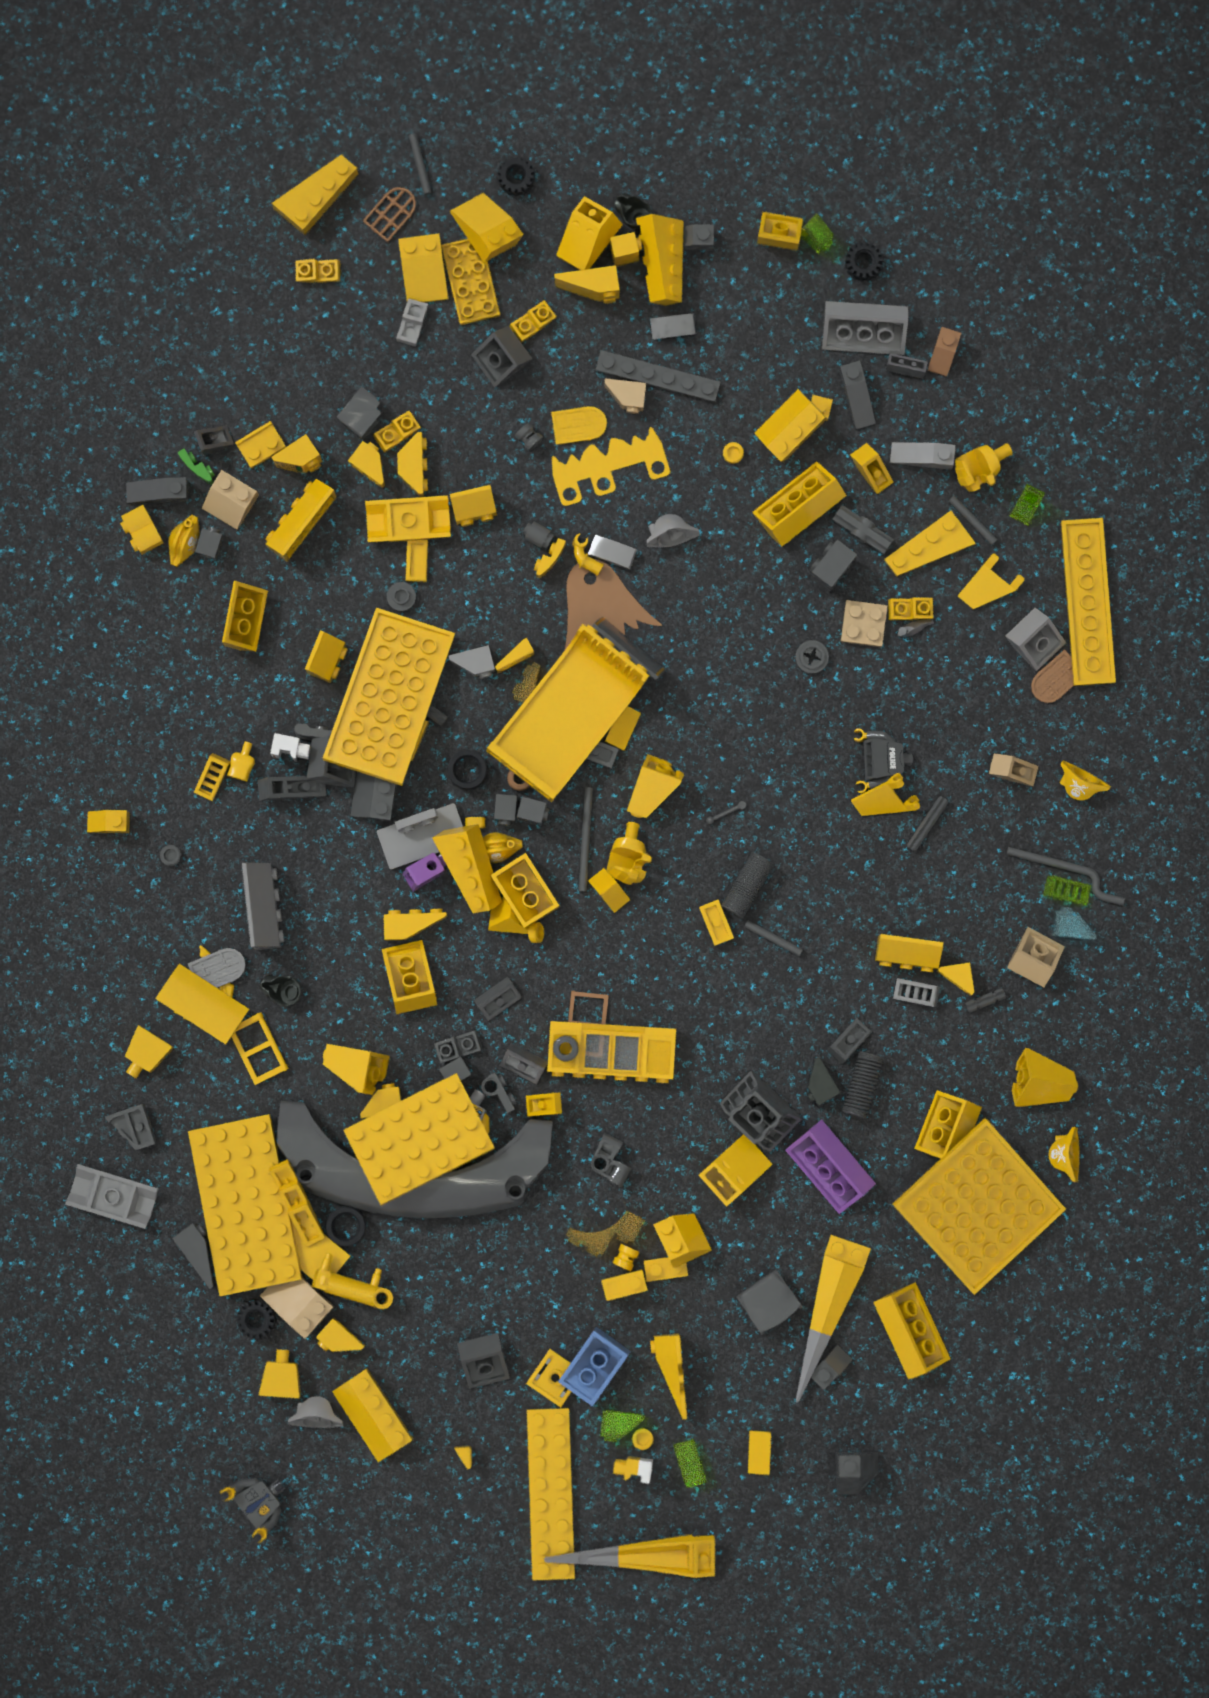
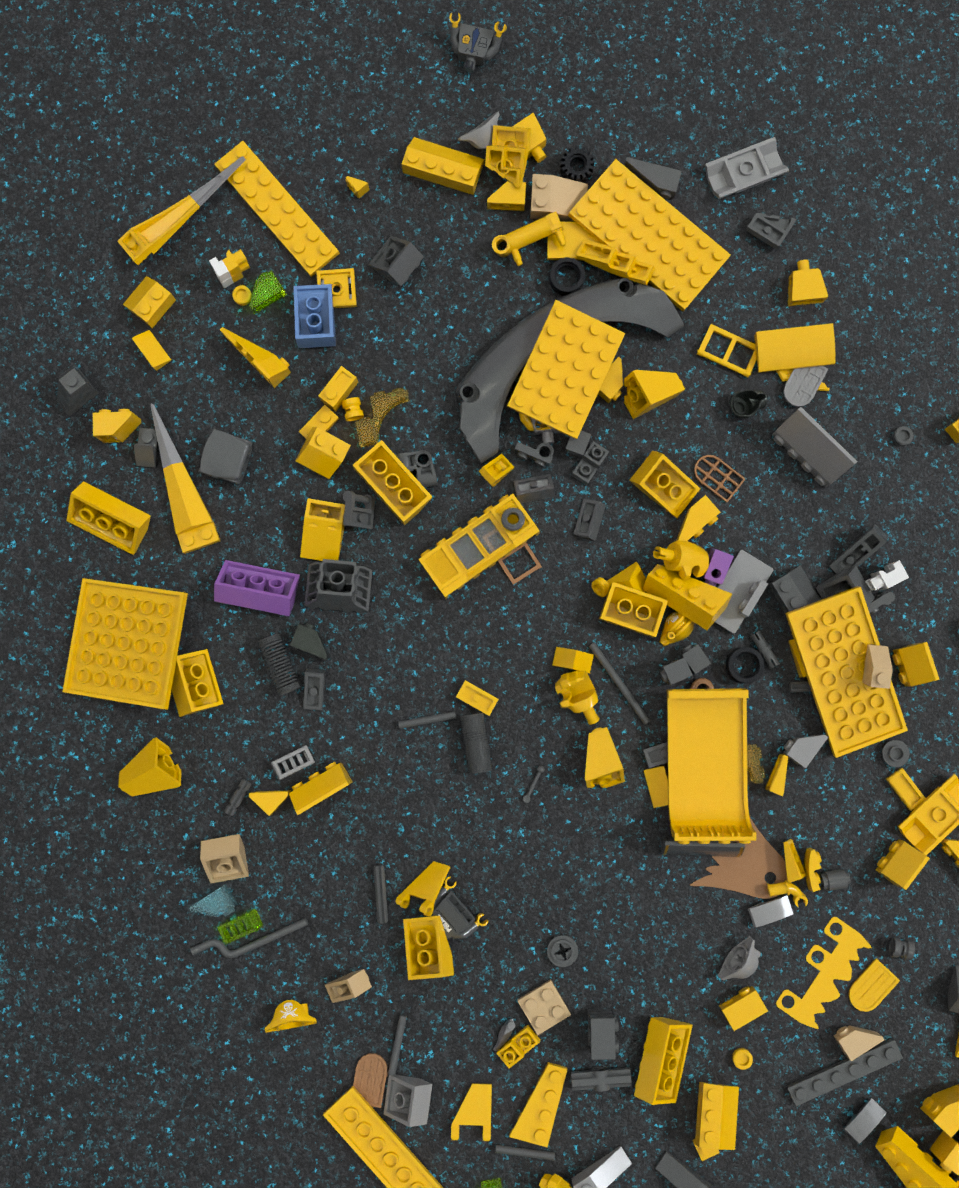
camera: 140 degrees right, 0 degrees up
(219, 760) = (919, 531): yellow slope -> none
(241, 763) = (908, 540): yellow piece -> none
(310, 1374) = (509, 152): none -> yellow slope
(350, 941) = (720, 484): none -> medium nougat window
(362, 680) = (877, 667): none -> tan slope
(439, 769) = (765, 649): none -> dark grey pin
(448, 900) = (684, 558): none -> yellow piece
(475, 819) = (706, 635): yellow piece -> none
(562, 575) = (794, 866): none -> yellow slope
(642, 1163) = (392, 482): none -> yellow slope
(690, 1463) = (195, 303): clear neon green slope -> none
(694, 1156) = (357, 516): none -> dark grey plate
(699, 493) = (743, 1008): none -> yellow brick
(729, 1499) = (149, 301): none -> yellow slope
(845, 1405) = (114, 426): none -> yellow slope
(871, 468) = (631, 1132): yellow slope -> none
(922, 748) = (427, 948): none -> yellow slope
(1010, 689) = (397, 1045): none -> dark grey bar
(1065, 1154) = (93, 730): yellow hat -> none

